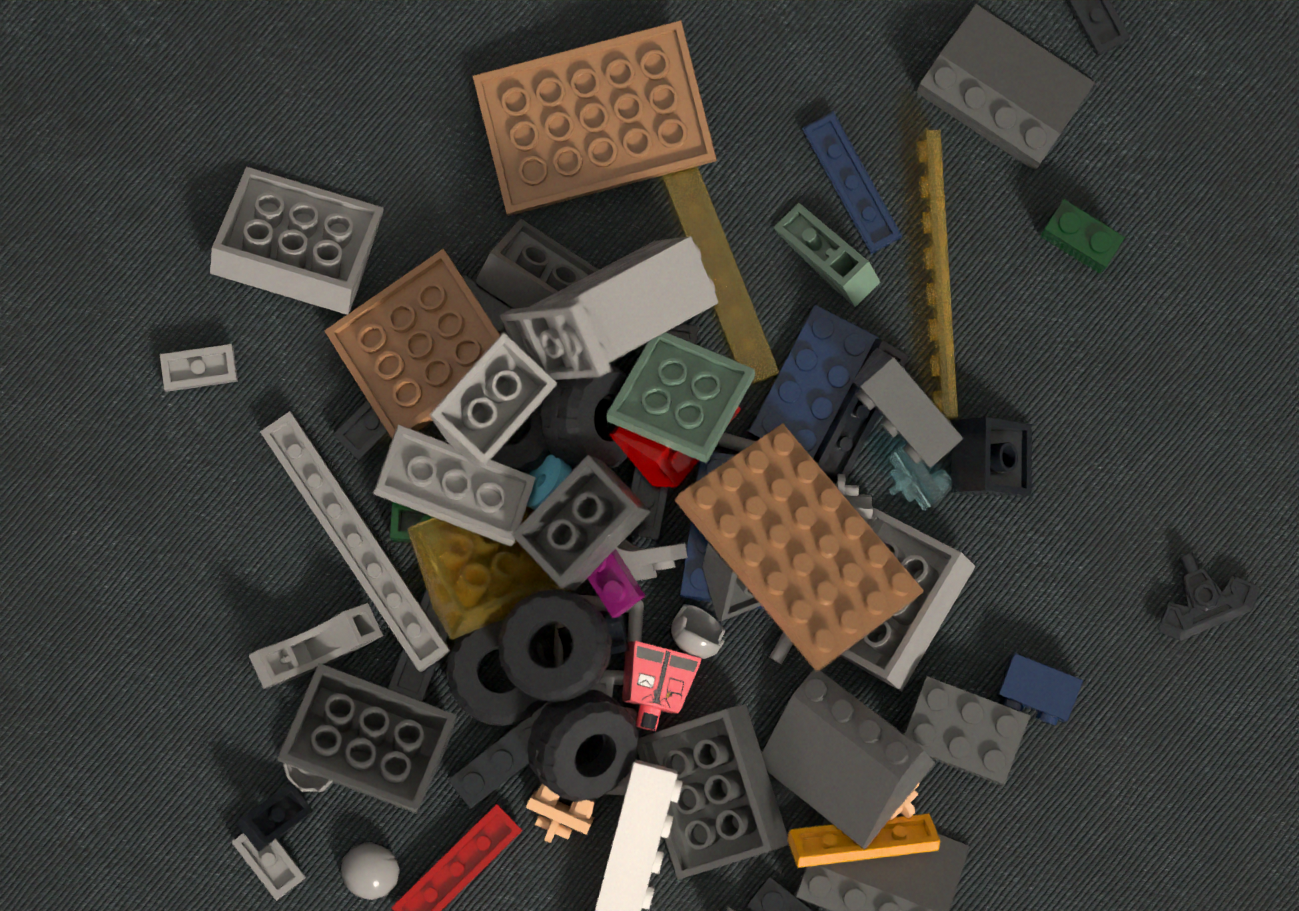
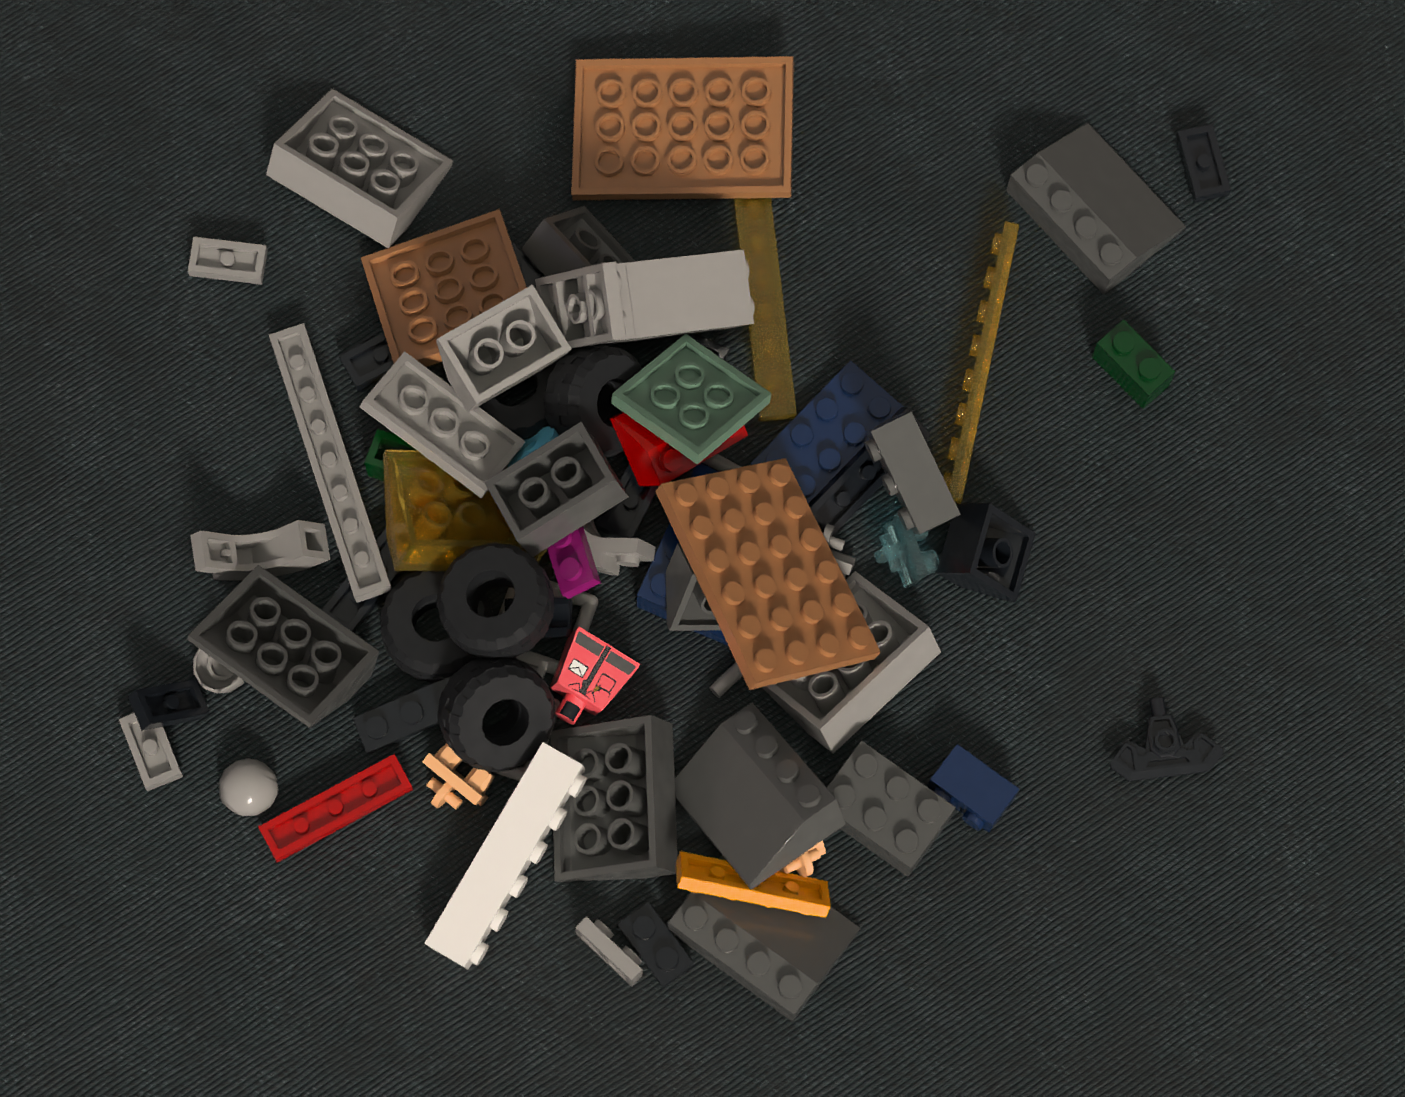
camera: 15 degrees right, 10 degrees down
(697, 632) = (643, 640): light grey hair -> none
(828, 254) = (877, 317): sand green slope -> none
(851, 183) = (919, 257): dark blue tile -> none

